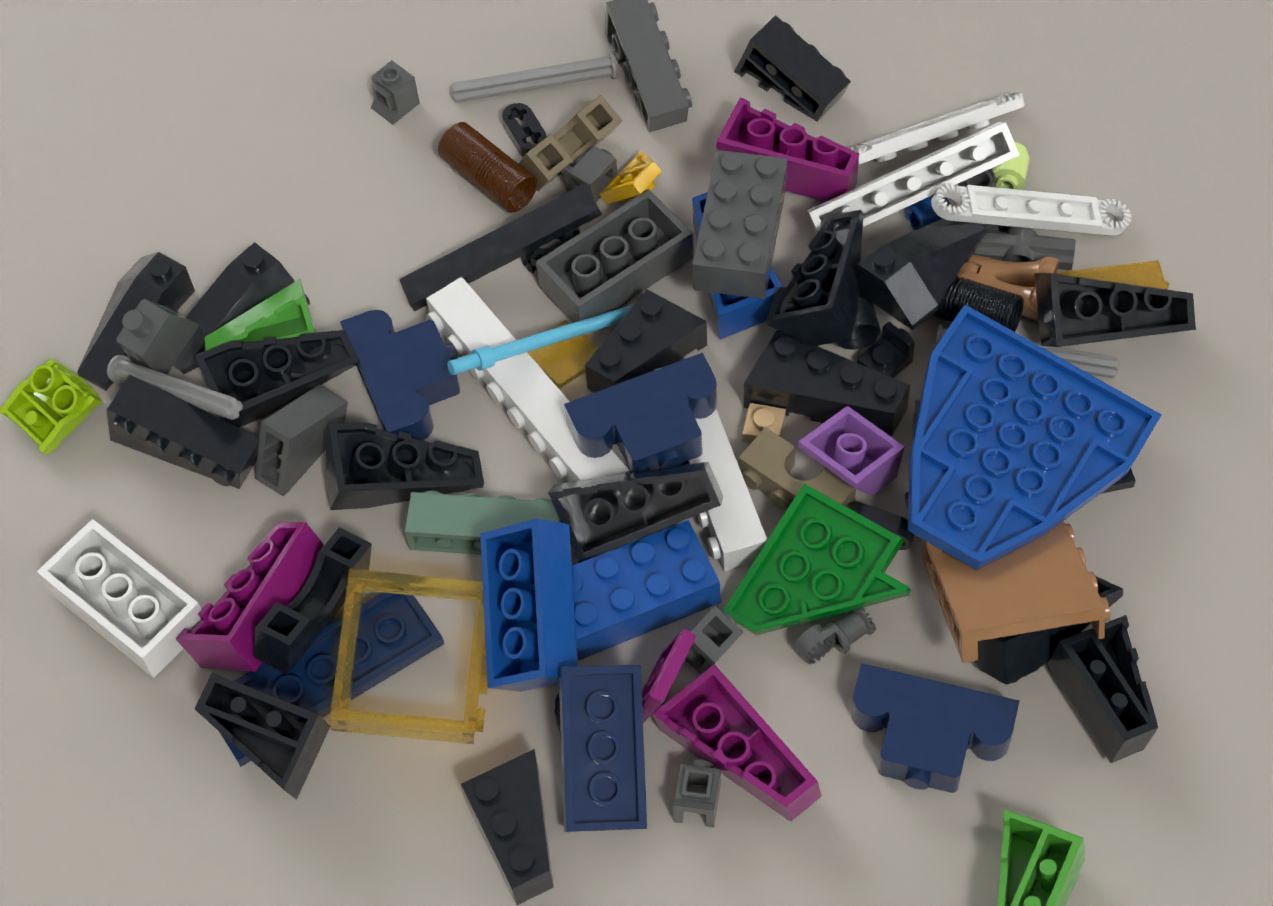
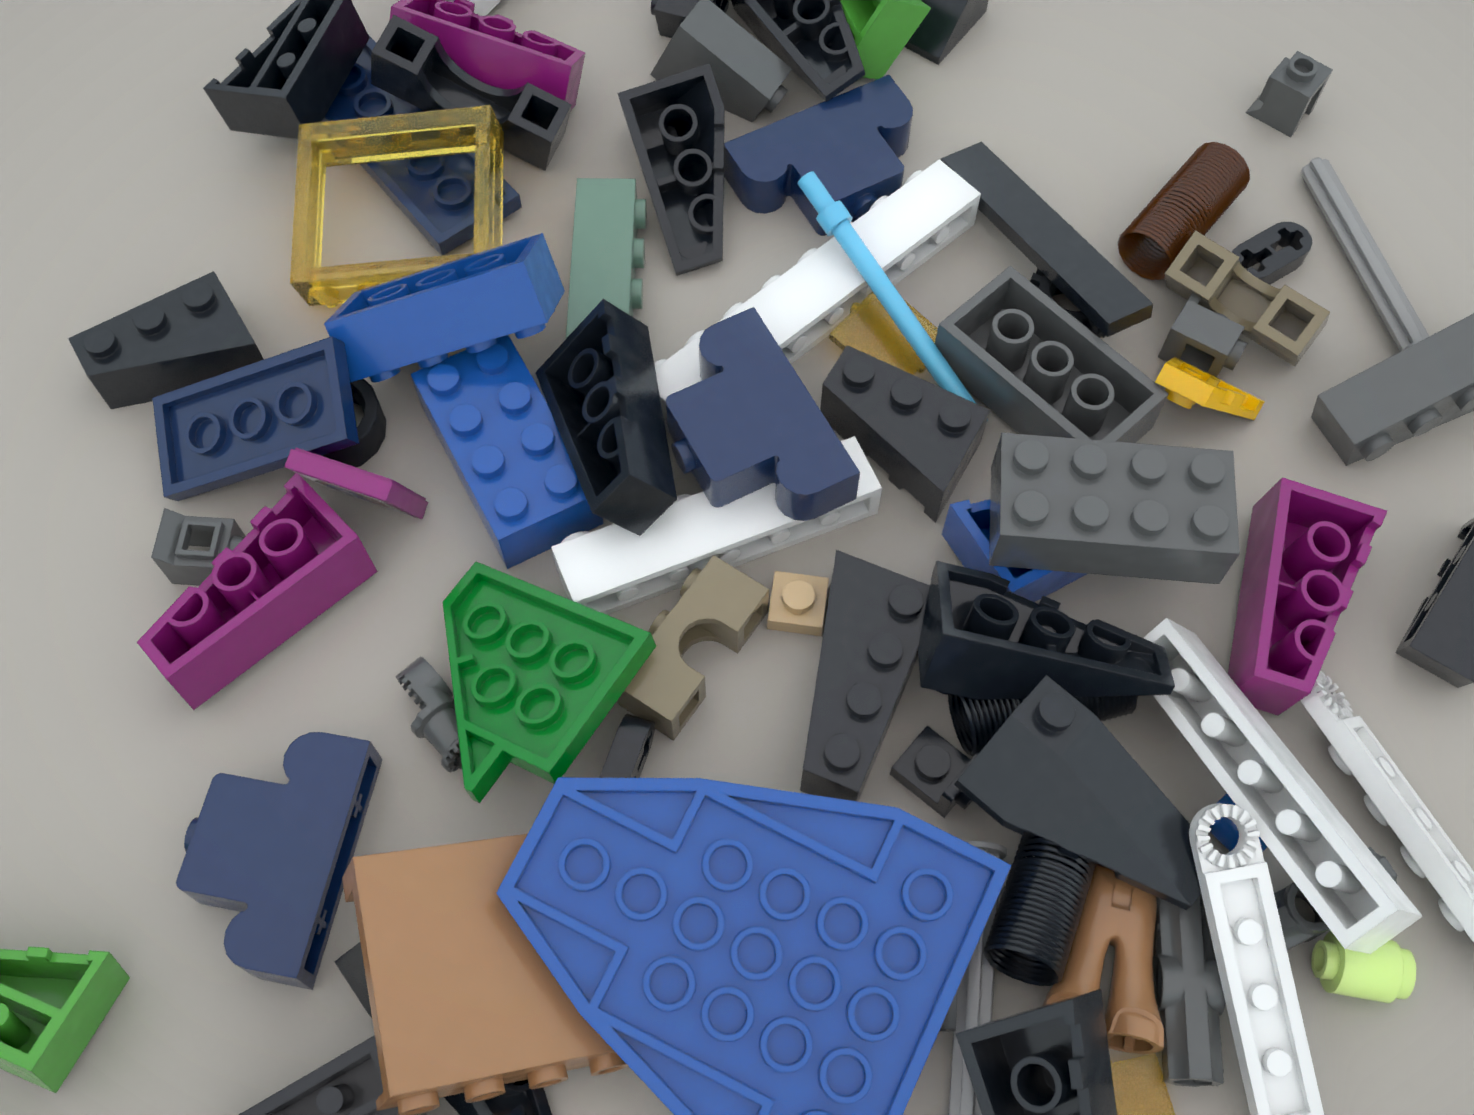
camera: 80 degrees right, 5 degrees up
(714, 637) = (412, 543): dark grey brick -> none
(855, 451) = (724, 706): medium lavender slope -> none

